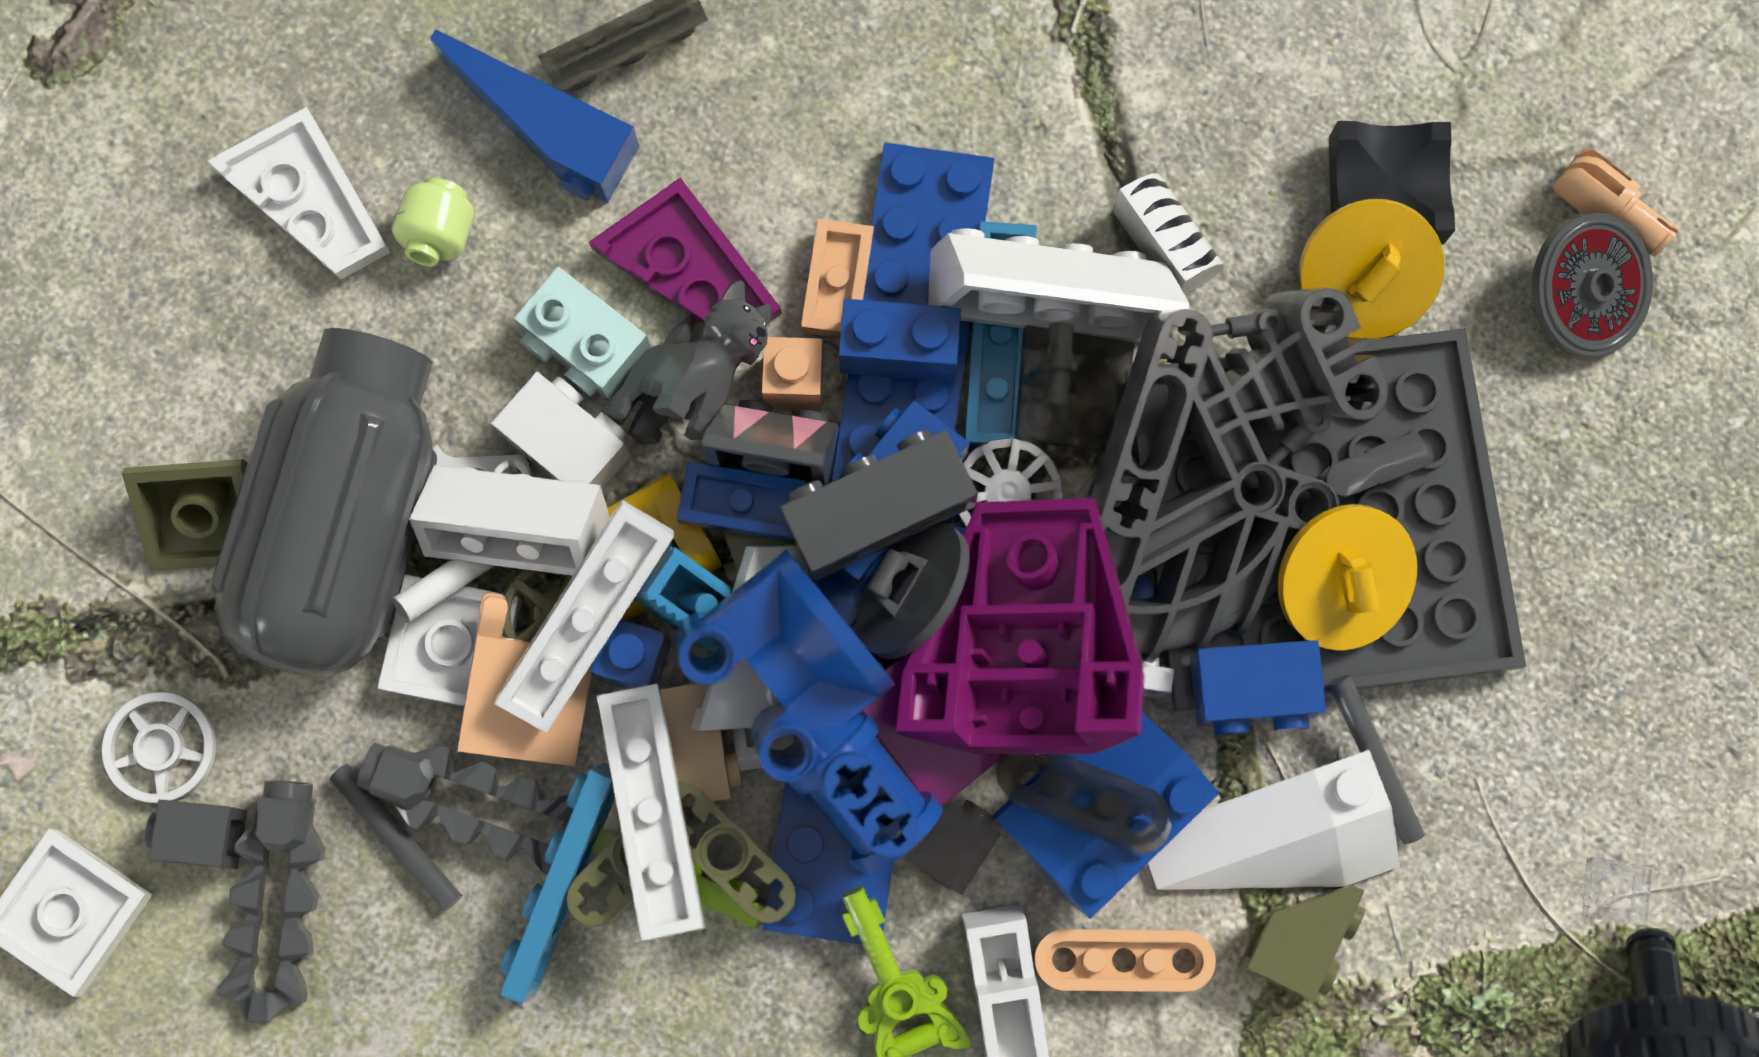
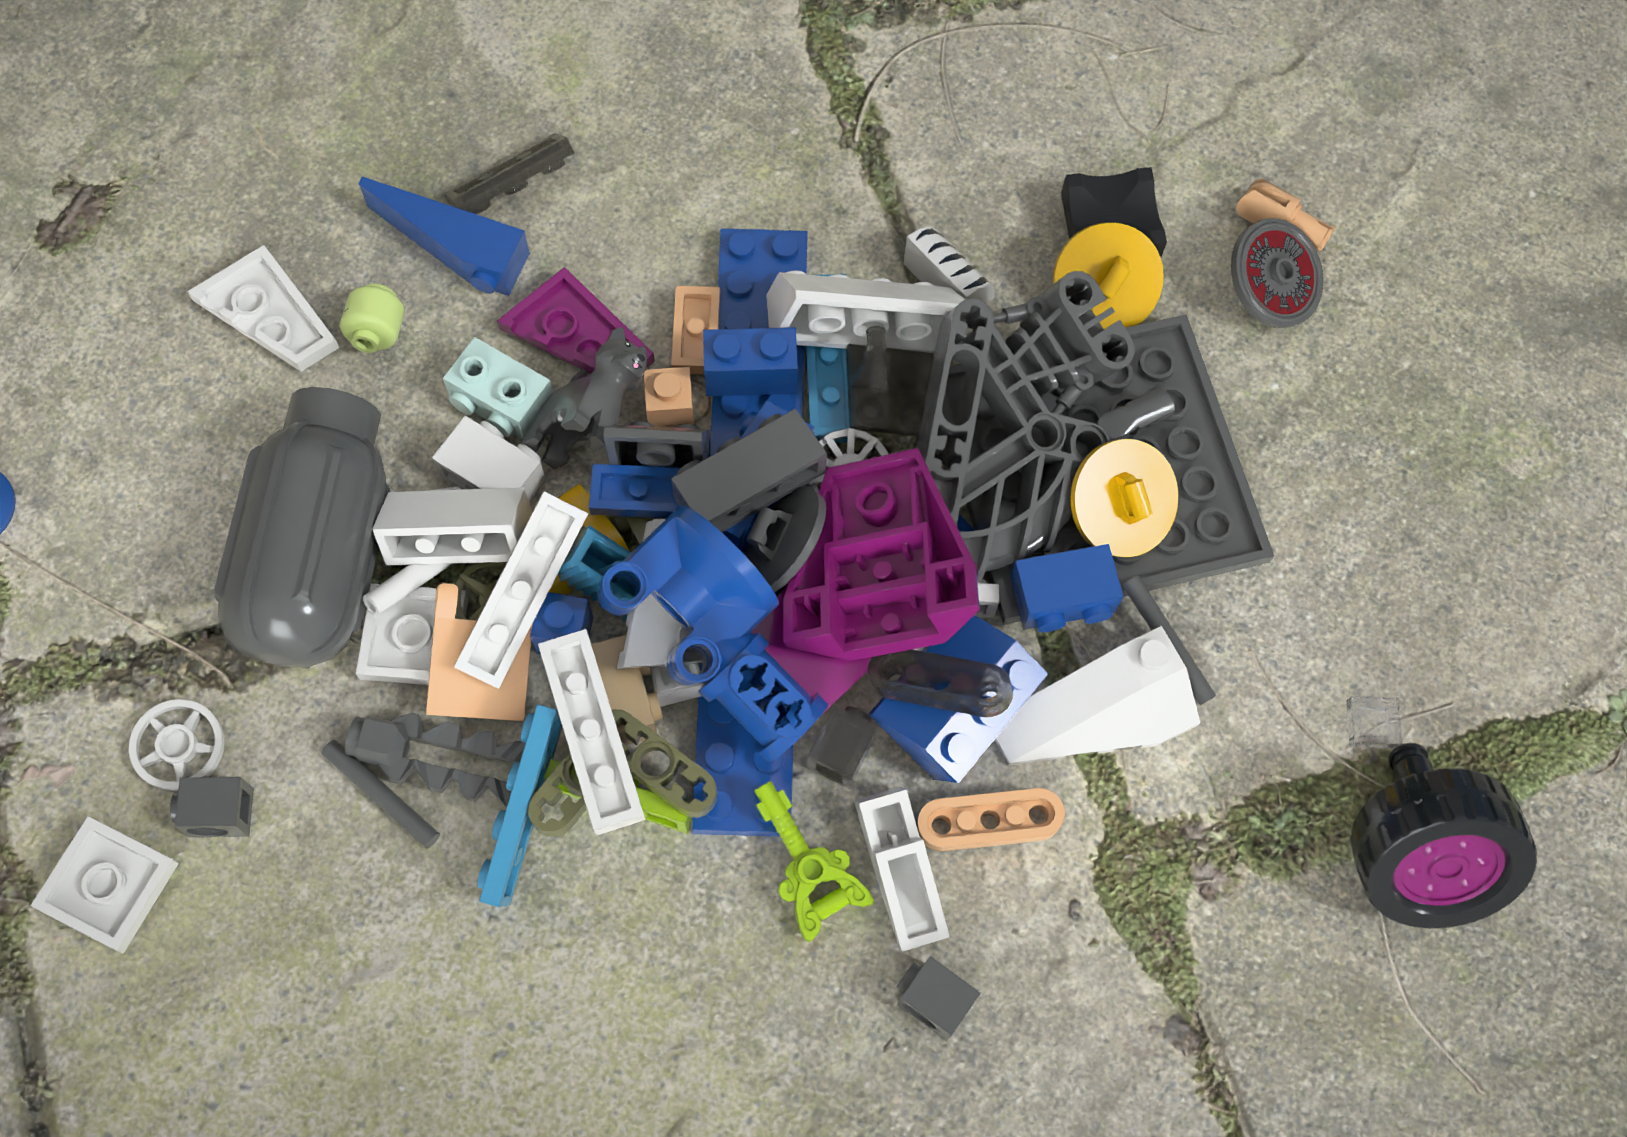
camera: 10 degrees left, 10 degrees down
(183, 510) = (185, 551): olive slope -> none
(281, 825) = (284, 791): dark grey sword -> none
(1299, 941) = (1129, 786): olive slope -> none

